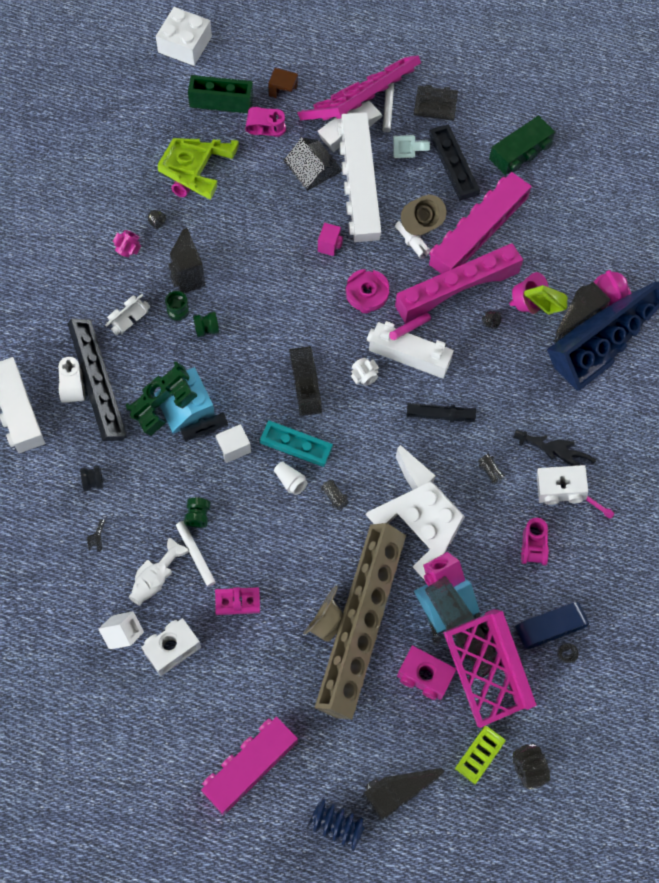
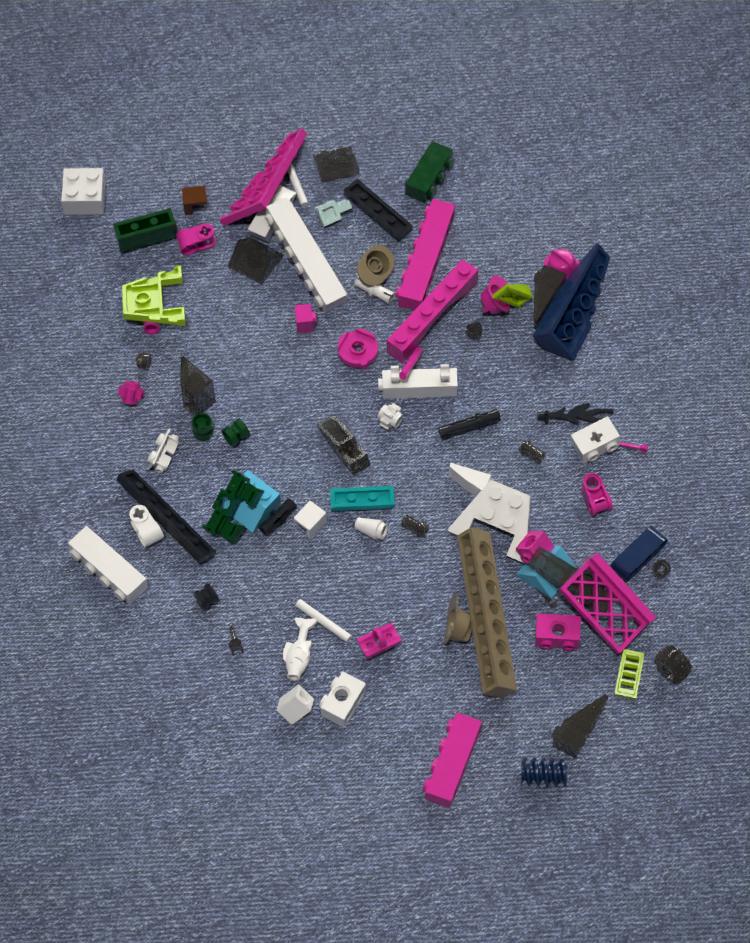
camera: 20 degrees left, 5 degrees down
(197, 512) = (309, 589): dark green wheel -> none

